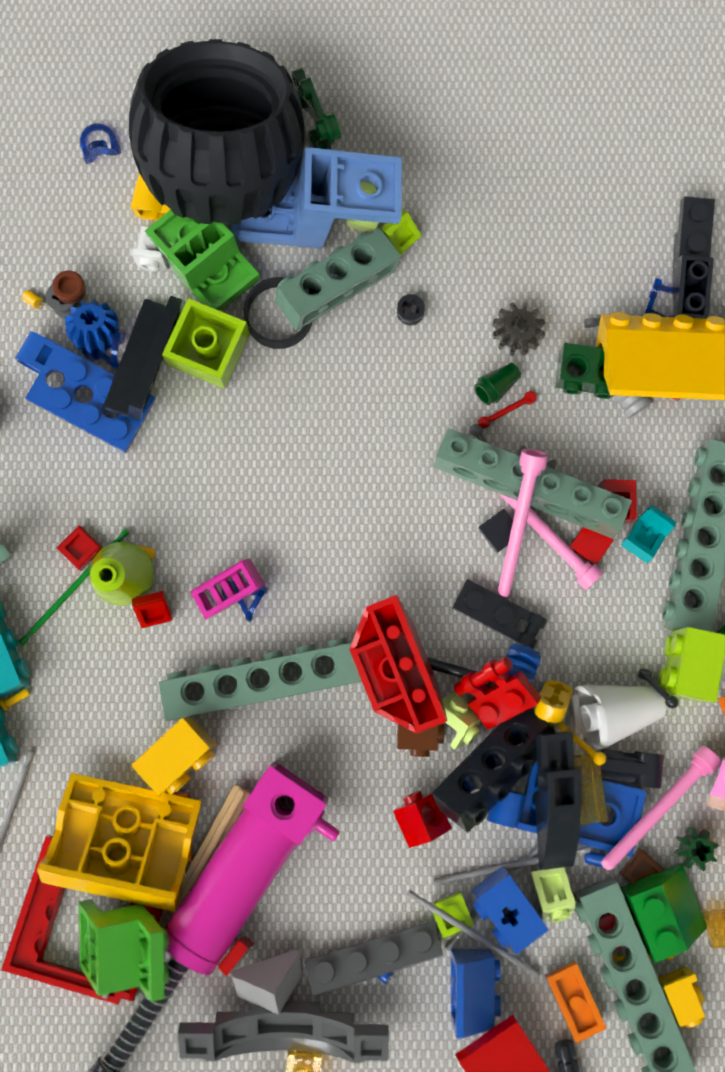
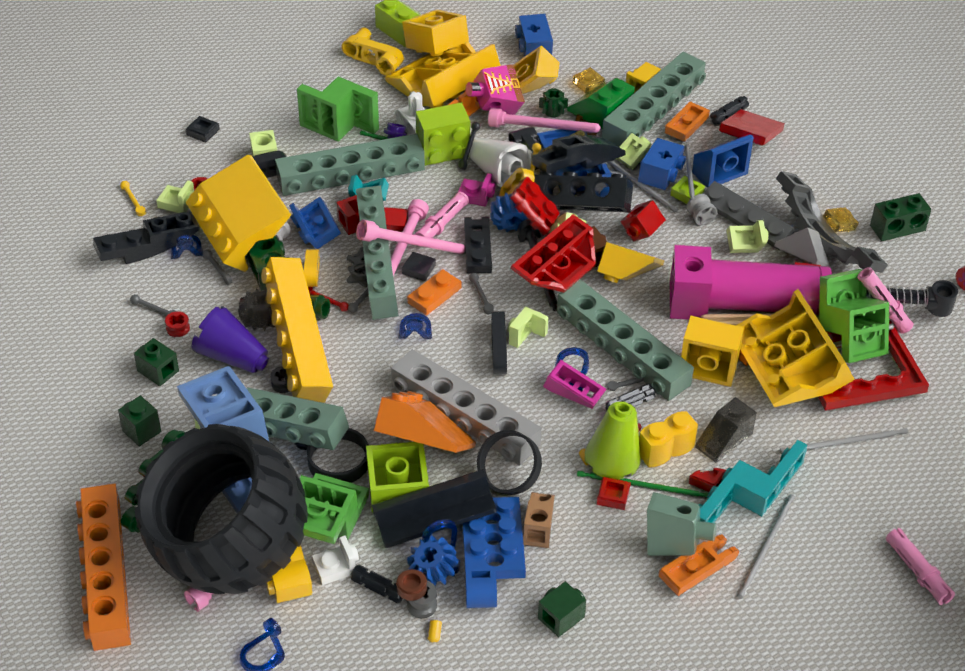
camera: 120 degrees left, 35 degrees down
(38, 651) = (706, 479): none -> red tile
(77, 706) = (727, 430): none -> clear smoke slope
(86, 454) = (538, 520): none -> medium nougat leg
(100, 645) = (667, 439): none -> yellow brick
(109, 273) = (375, 583): none -> black axle
(117, 1007) = (871, 281): none -> bright pink pin
(167, 475) = (489, 442): none -> black tyre
(181, 638) = (635, 396): none -> axle
(216, 636) = (612, 385): none -> dark grey hinge
(236, 391) = (420, 421): none -> orange slope
(253, 477) = (465, 405): none -> light grey brick
(330, 928) = (747, 238): none -> yellowish green bracket
(332, 82) = (104, 568): none -> orange brick
(333, 547) = (499, 348): none -> black beam
(341, 580) = (524, 324): none -> yellowish green bracket
(368, 764) = (625, 263): none -> yellow slope
(397, 572) = (474, 277): none -> dark grey hinge
(398, 462) = (414, 323): none -> clear blue piece
(406, 908) = (702, 210): none -> light grey wheel
(424, 146) = (139, 420): none -> dark green brick
(452, 526) = (434, 292): none -> orange plate
(454, 339) = (297, 329): none -> yellow brick
(478, 272) = (229, 342): none -> dark purple cone
(499, 195) = (156, 362): none -> dark green brick
(550, 233) = (181, 323): none -> red bush
(552, 410) = (312, 267): none -> yellow beam
(561, 595) = (455, 204): none -> bright pink pin
(568, 246) = (135, 299): none -> dark grey hinge
(588, 662) = (478, 191): none -> dark pink bracket
(626, 448) = (315, 223): none -> blue bracket

